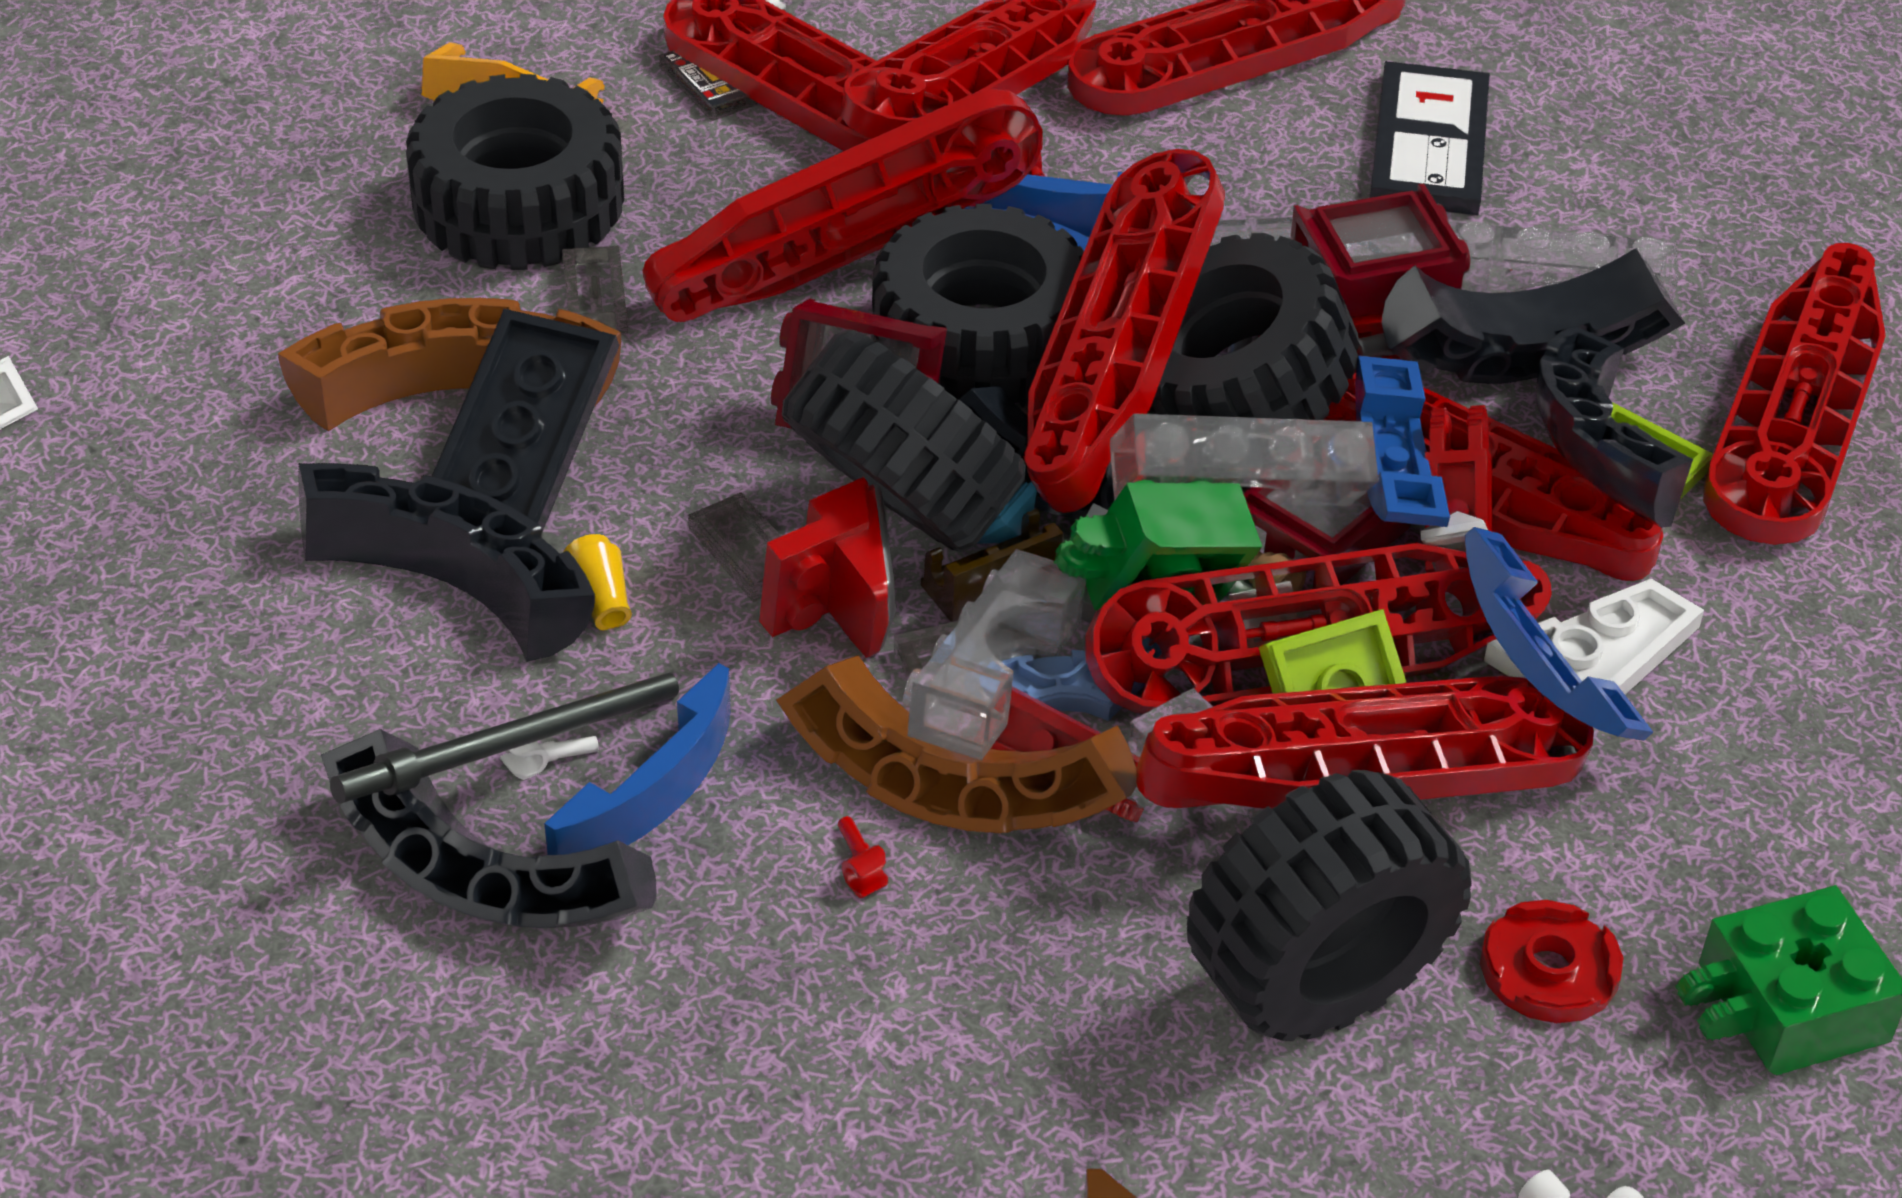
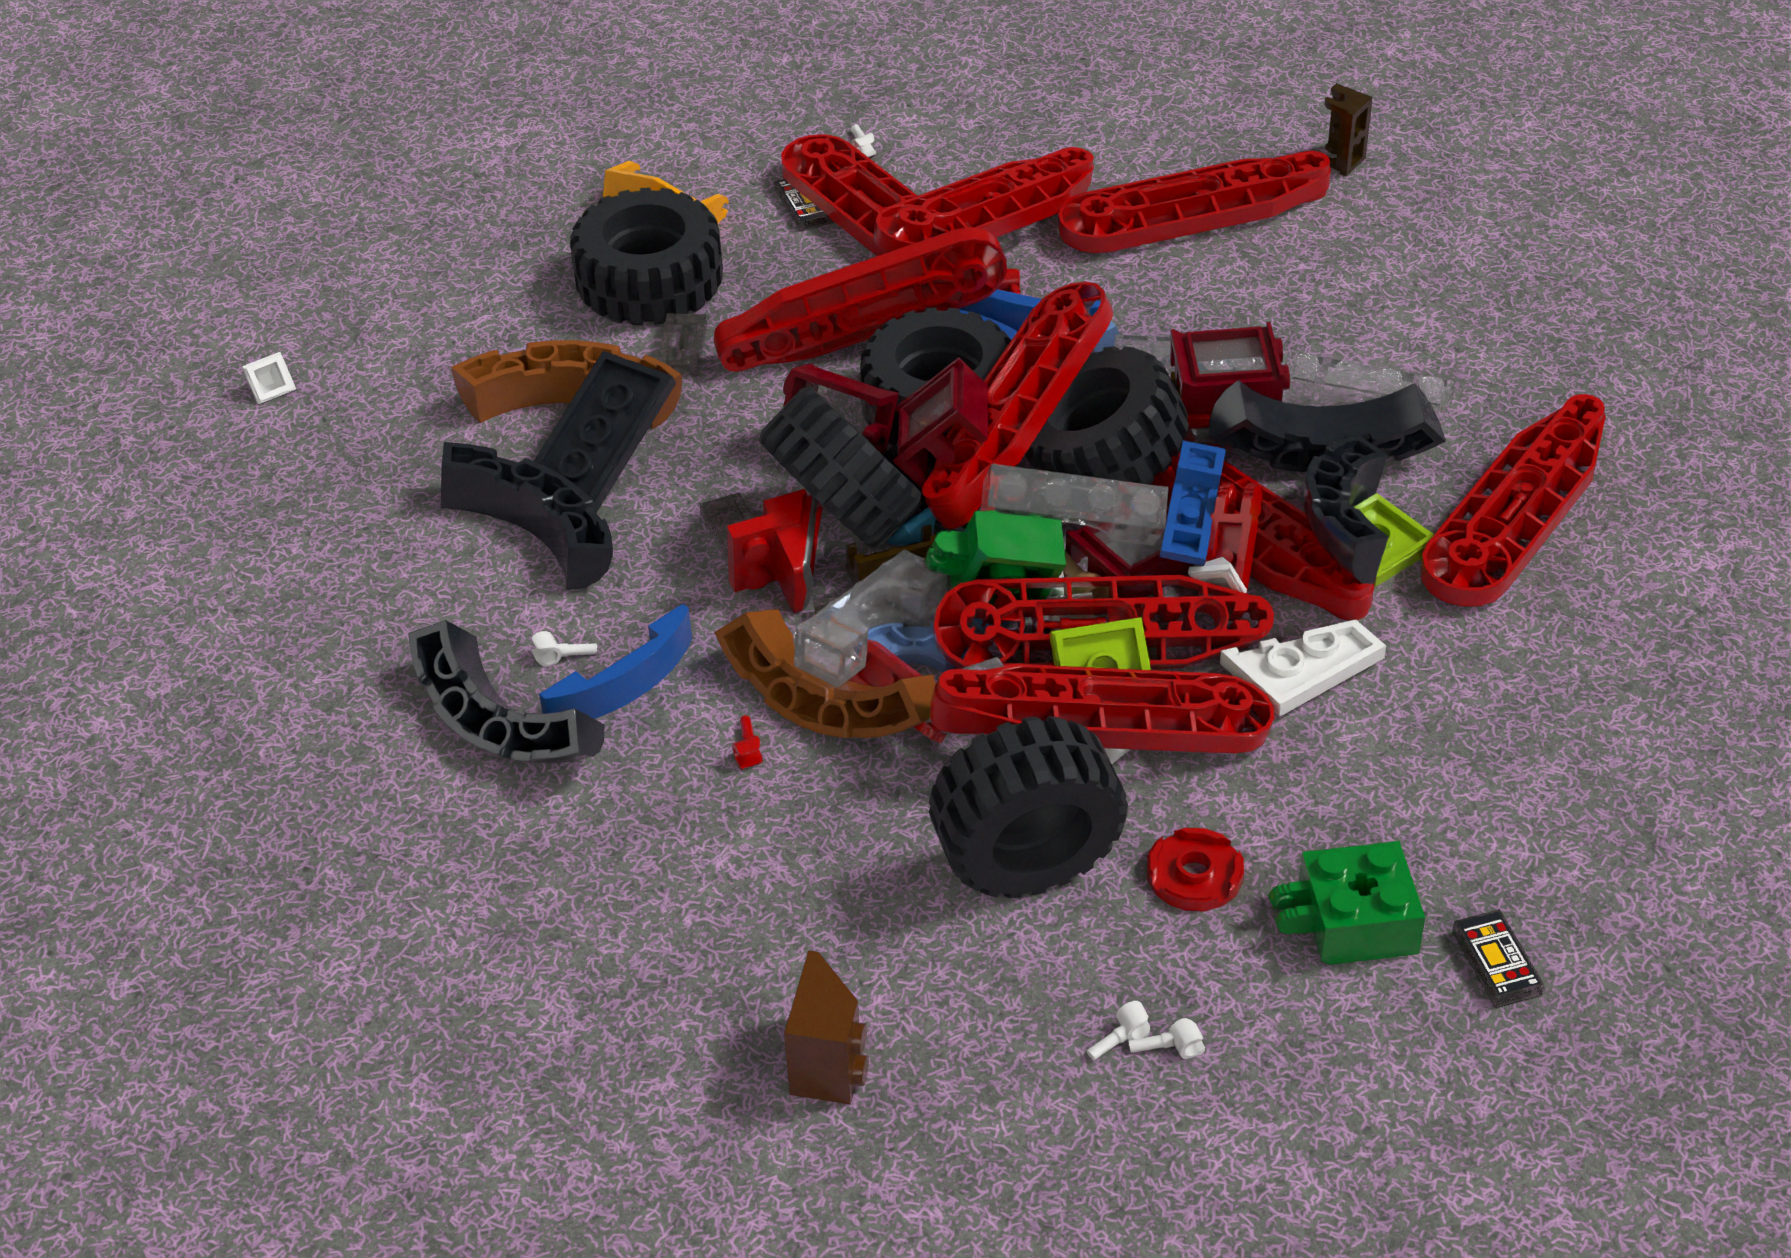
camera: 15 degrees right, 0 degrees up
(403, 769) = (452, 647): pearl dark grey bar -> none
(605, 573) = (627, 540): yellow cone -> none
(1022, 346) = (947, 398): none -> dark red window
(1432, 134) = (1314, 288): tile -> none
(1499, 584) = (1228, 611): blue slope -> none

